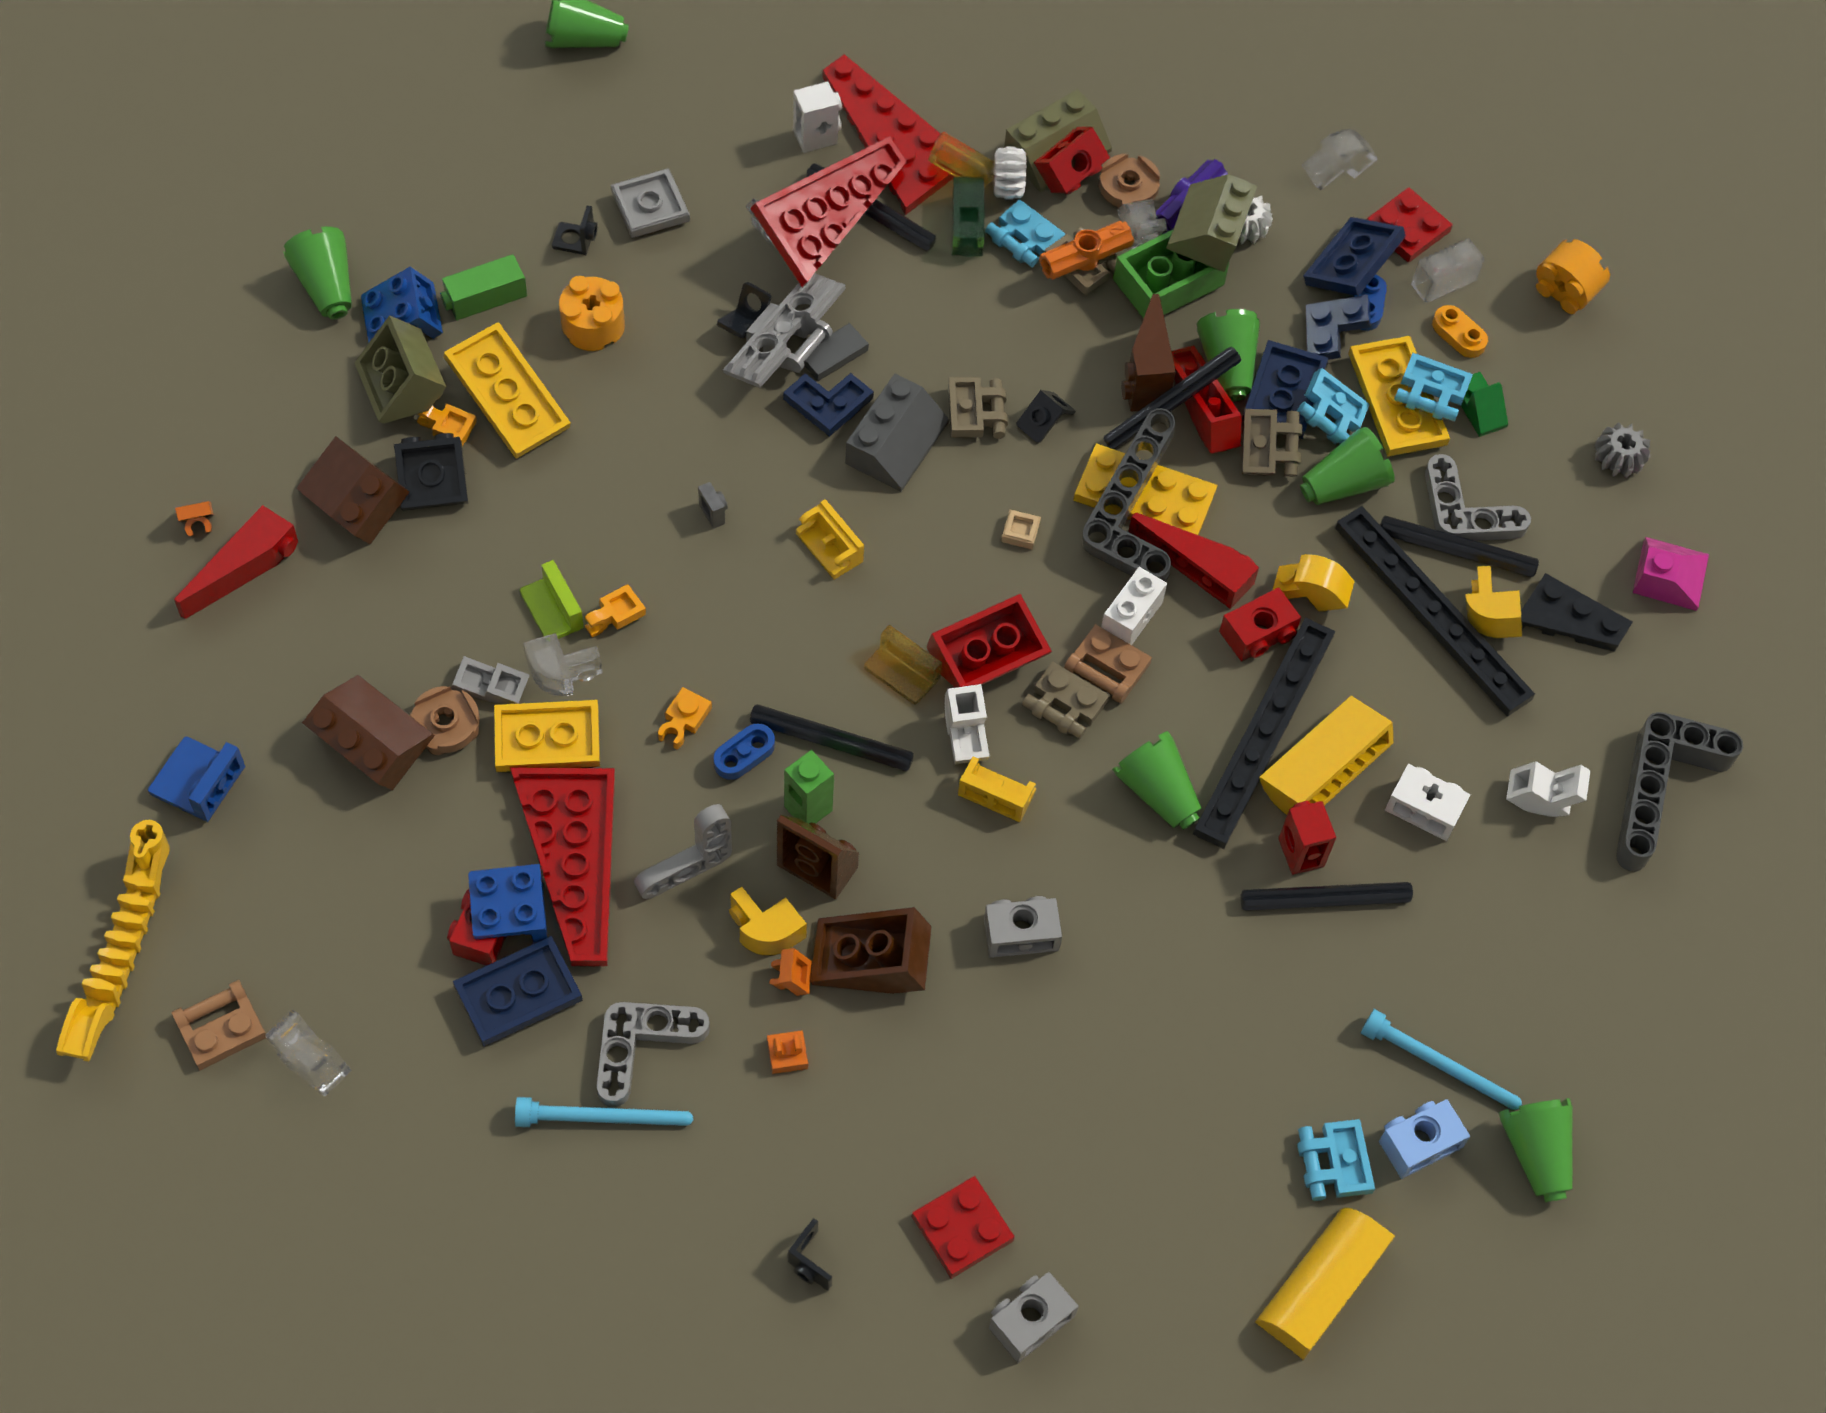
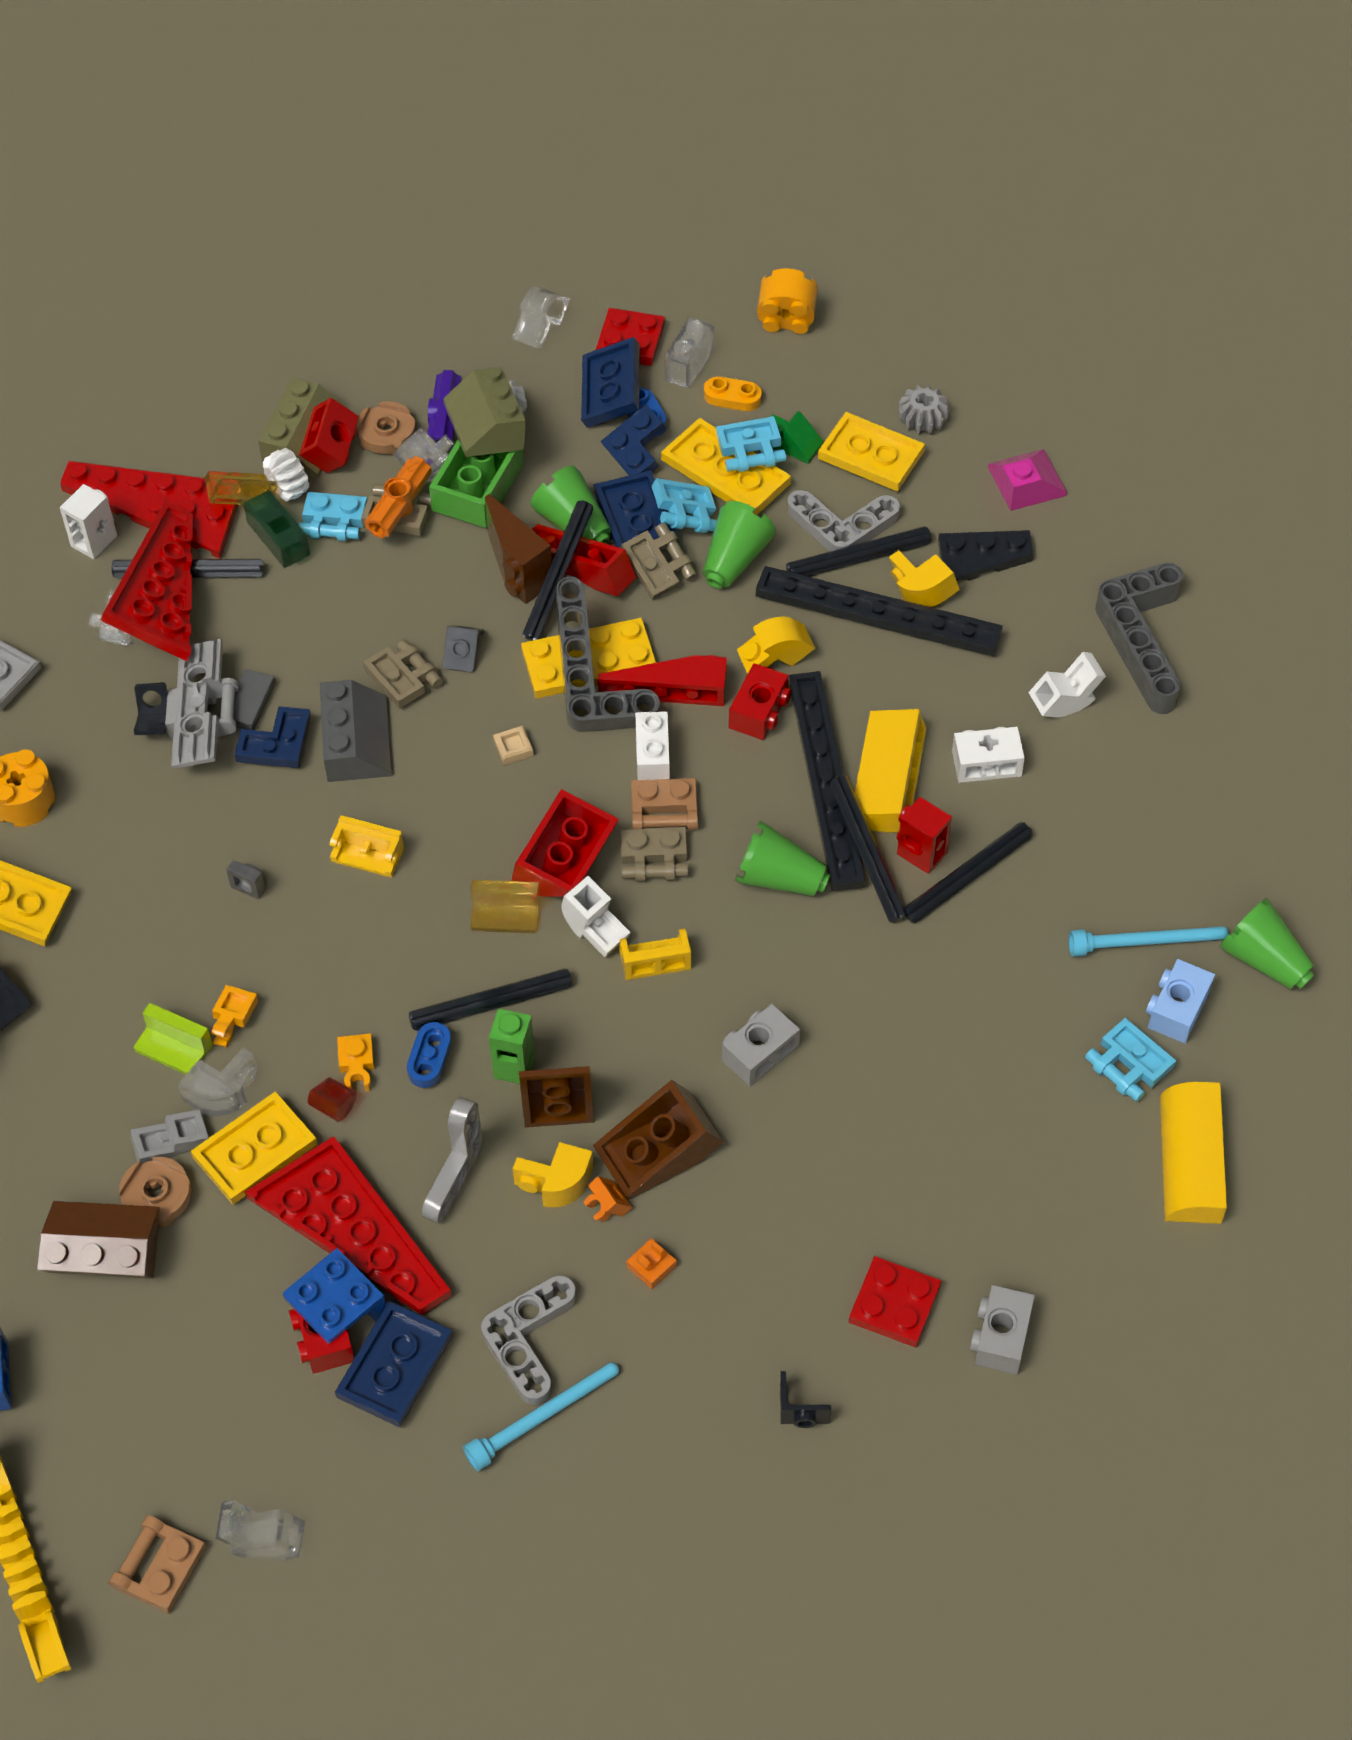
camera: 30 degrees left, 5 degrees down
(638, 736) = (332, 1099): none -> clear red brick
(1250, 817) = (868, 849): none -> black axle
(1543, 460) = (871, 451): none -> yellow plate

